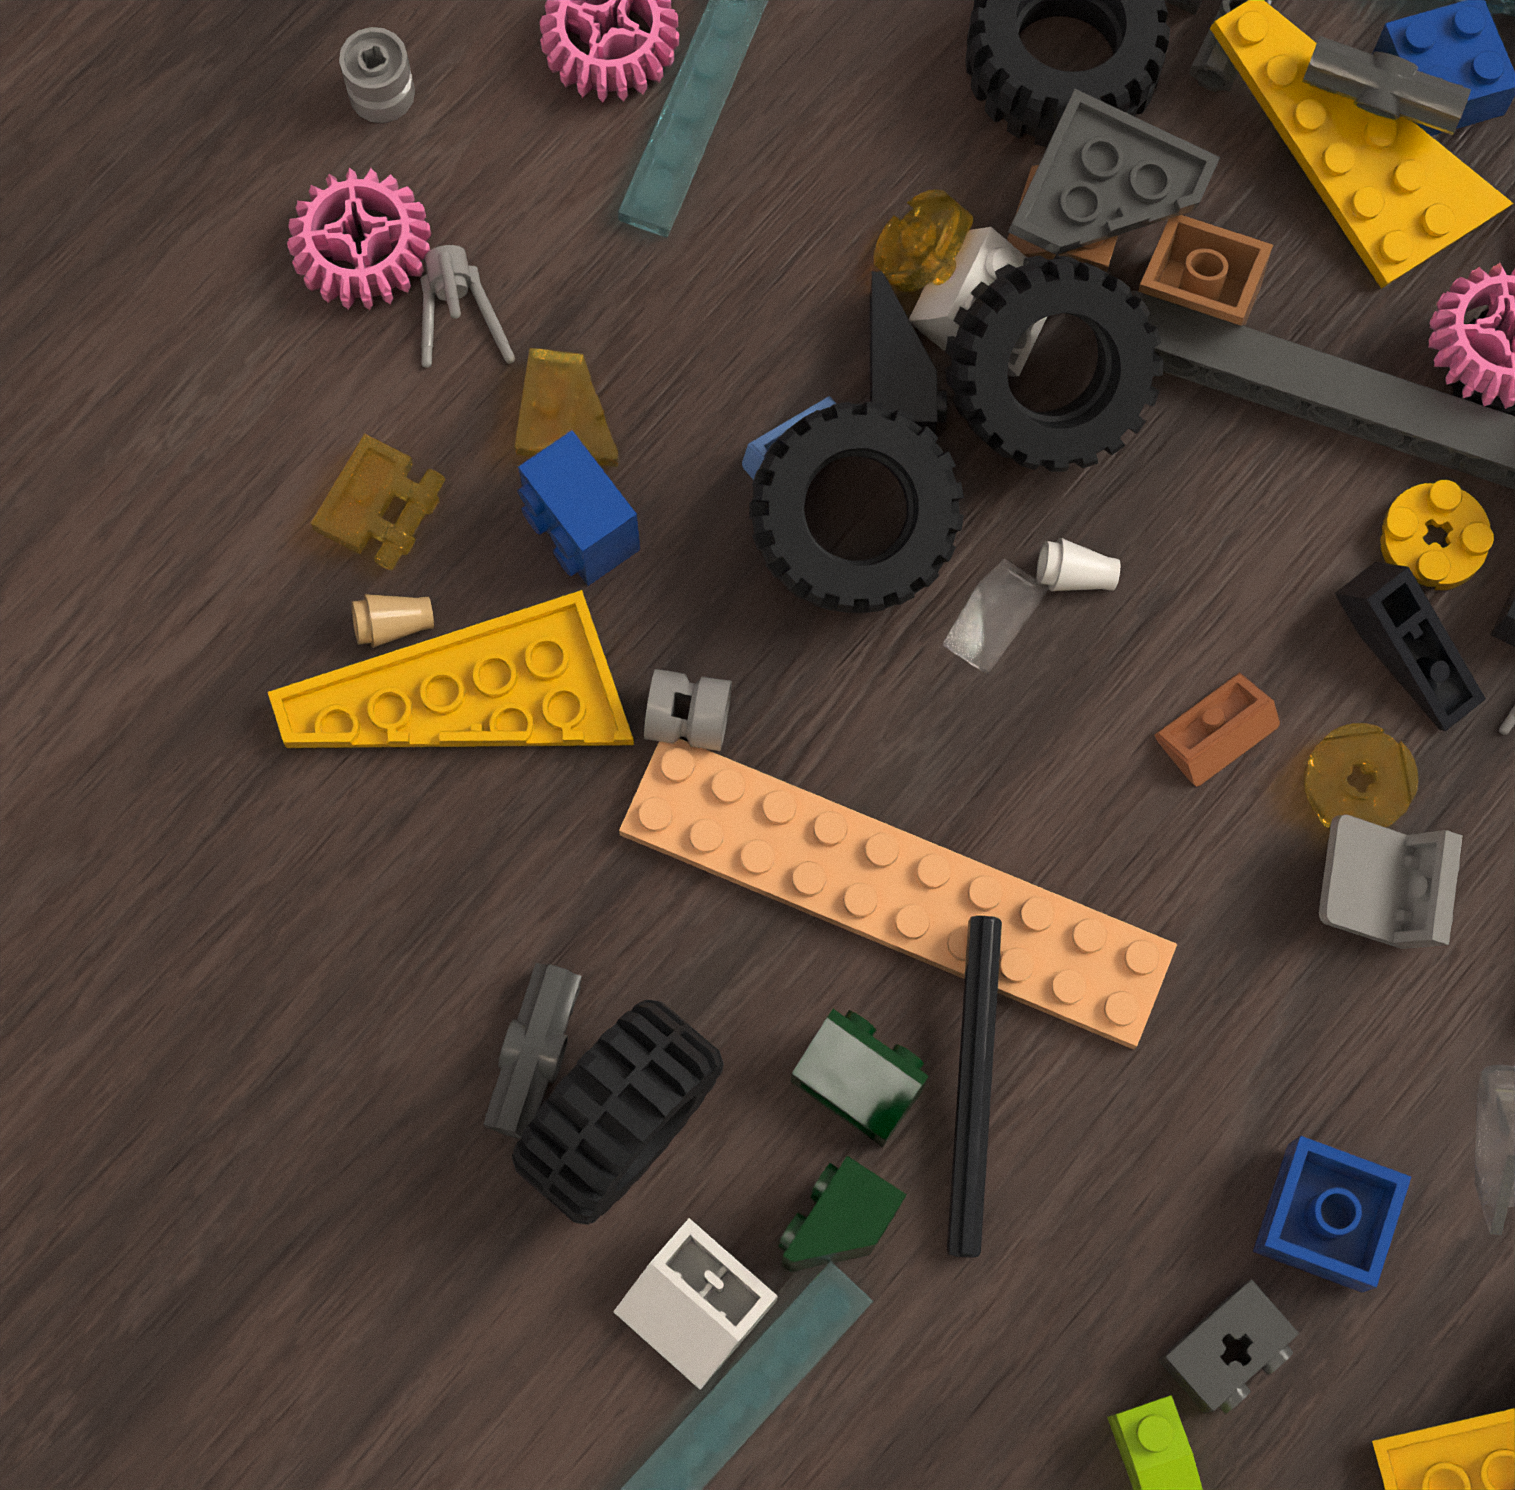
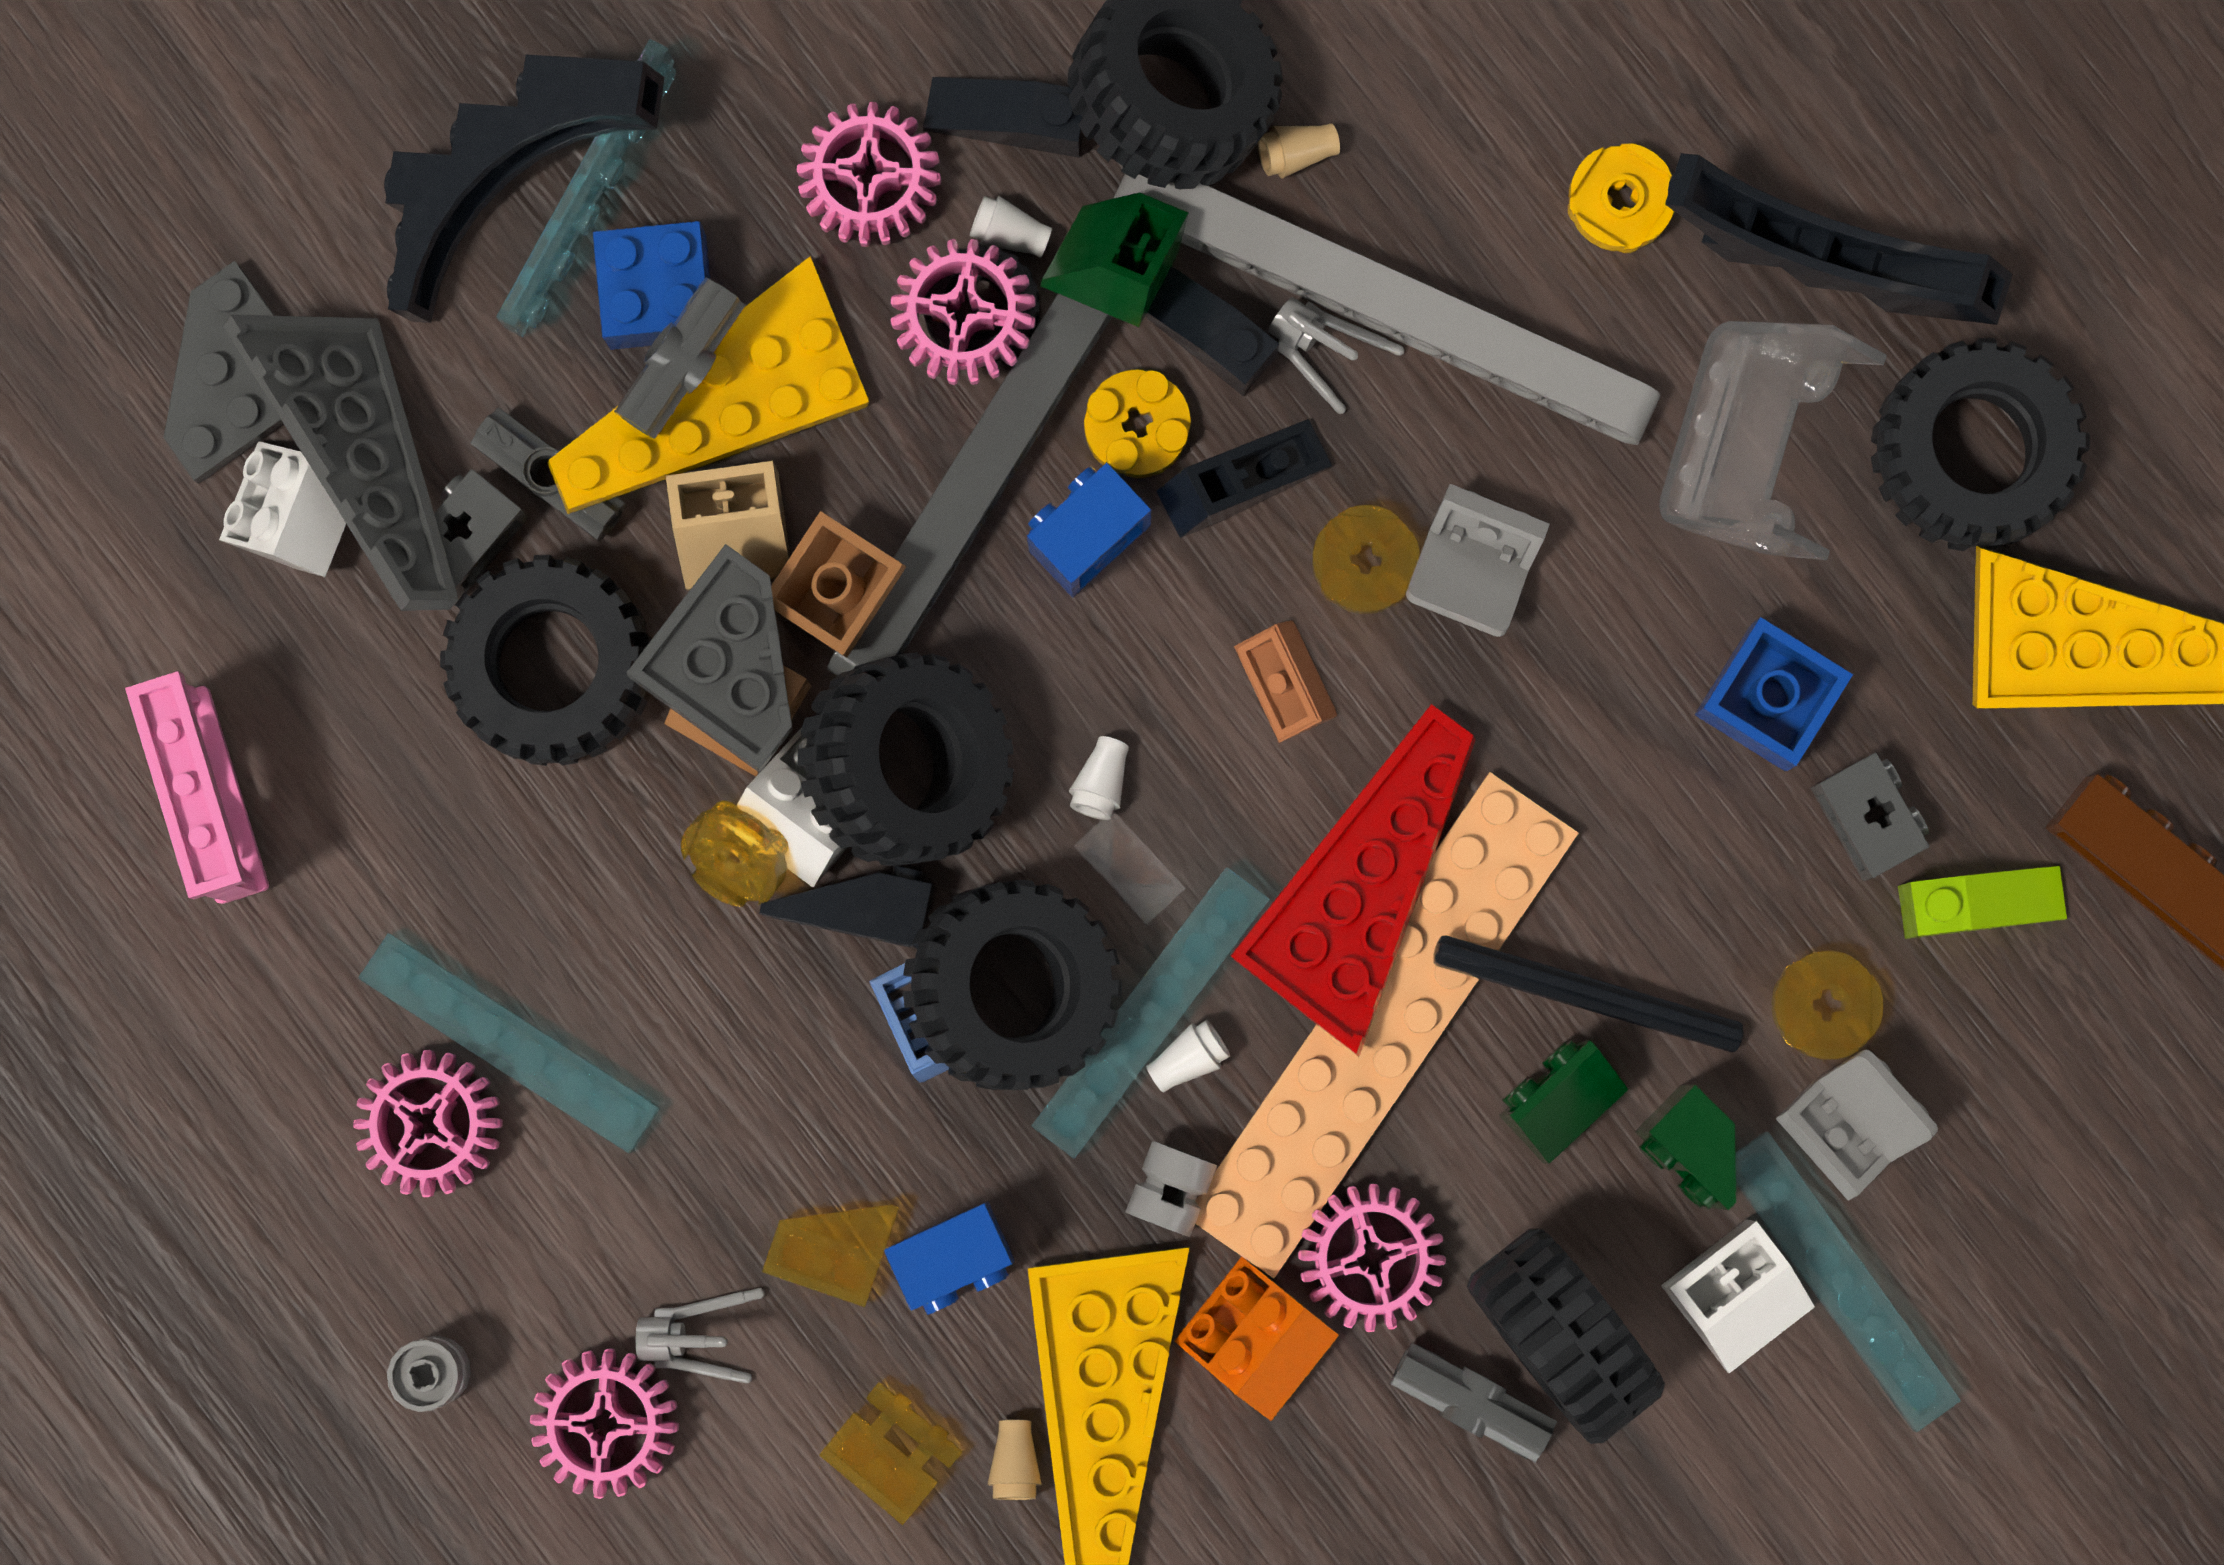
camera: 75 degrees left, 10 degrees up
(554, 824) = (1256, 1338): none -> orange slope
(681, 906) = (1417, 1244): none -> bright pink gear
(824, 707) = (1189, 1056): none -> white cone
(858, 660) = (1151, 1012): none -> clear light blue plate
(902, 1390) = (1856, 1122): none -> light grey bracket
(1007, 828) = (1347, 908): none -> red wing
(1036, 1313) = (1848, 983): none -> clear yellow plate
(1256, 175) = (731, 508): none -> tan slope
(1320, 497) = (1087, 528): none -> blue brick

